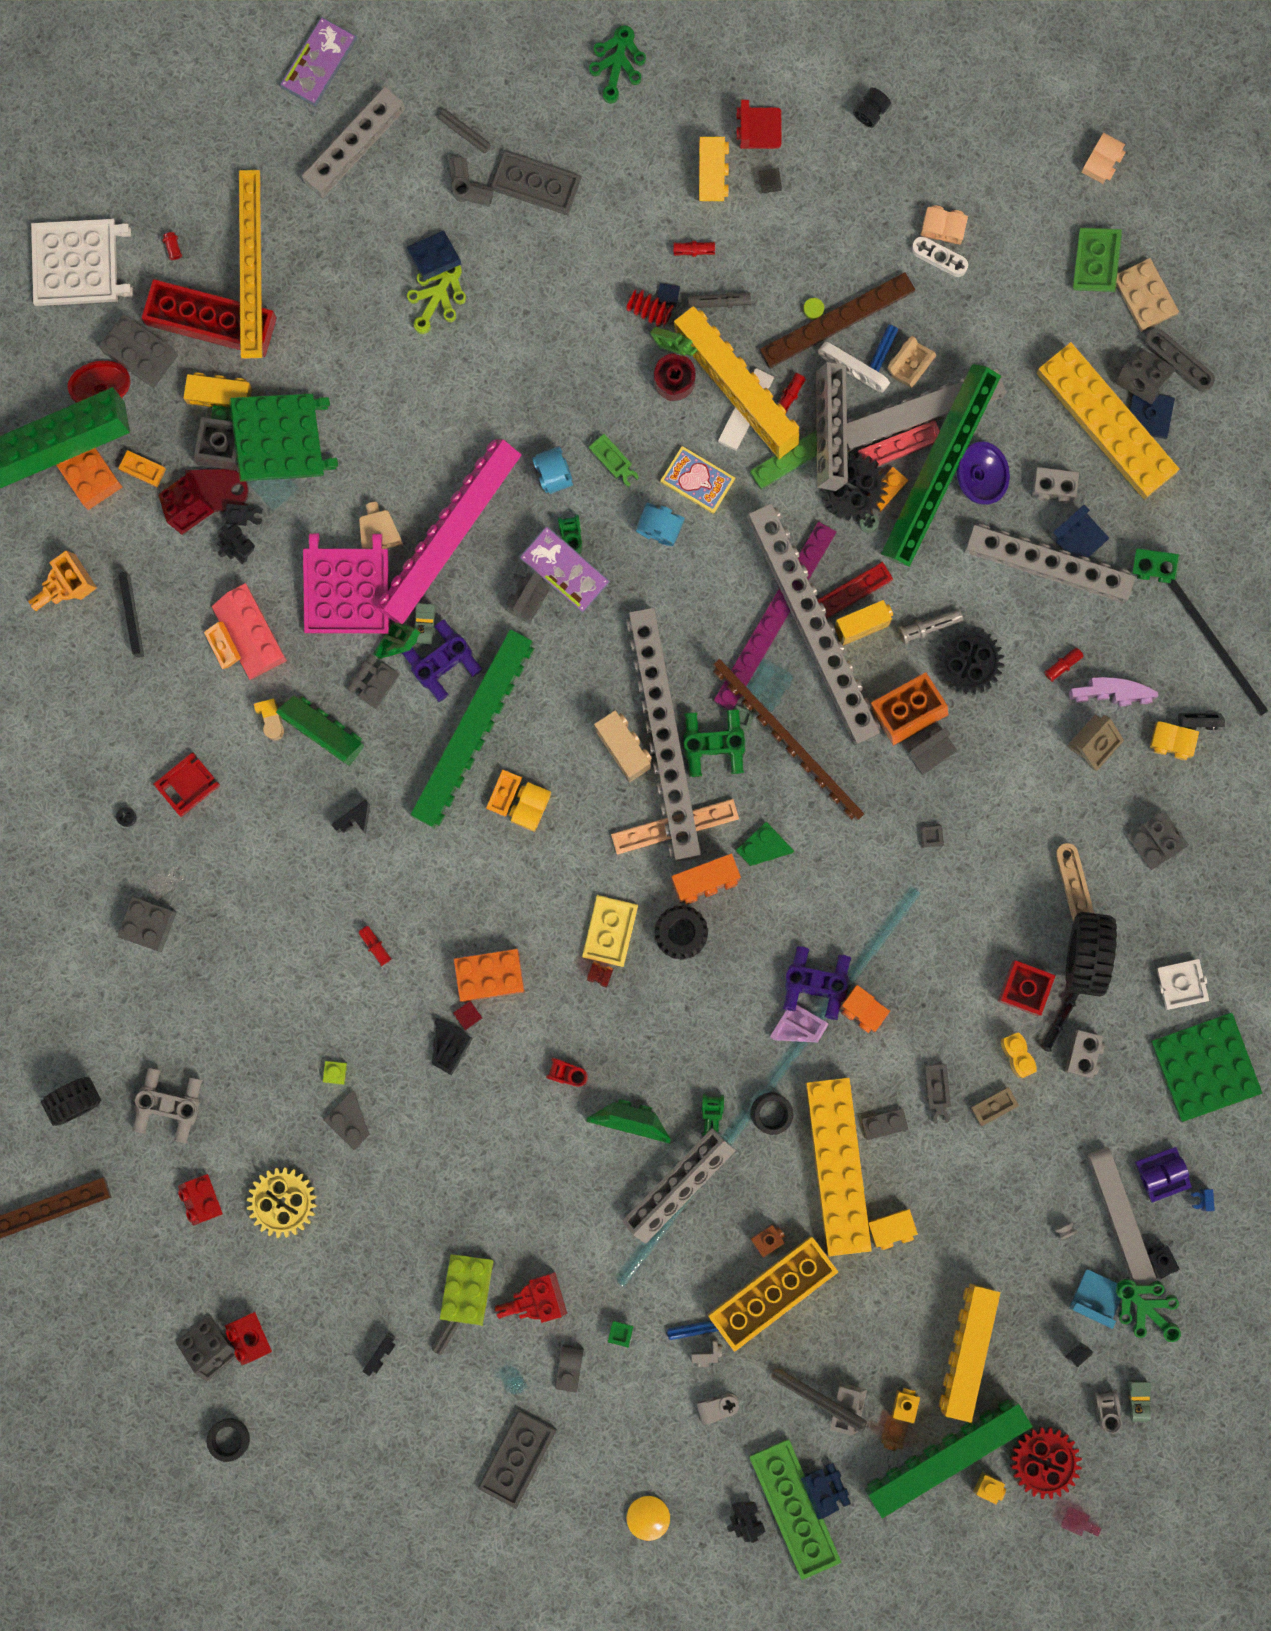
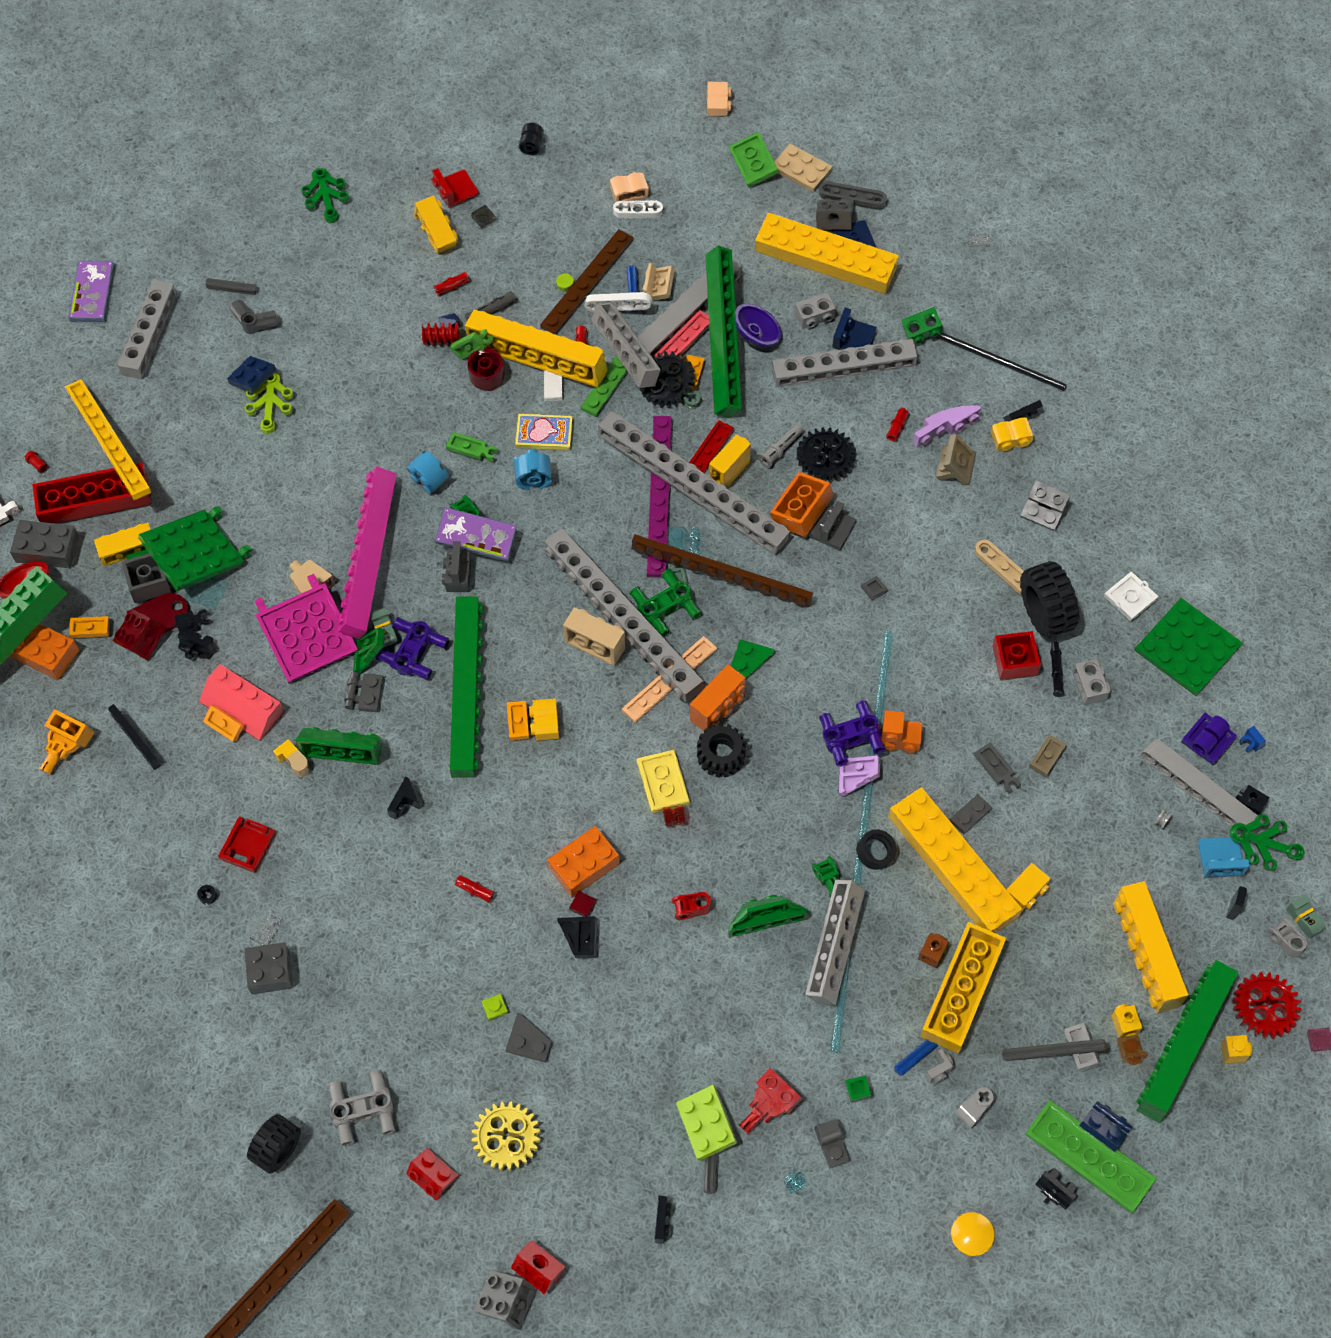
camera: 30 degrees left, 20 degrees down
(517, 1459) = (831, 1246): dark grey tile -> none
(536, 182) = (305, 295): dark grey tile -> none
(1020, 1060) = (1038, 705): yellow brick -> none

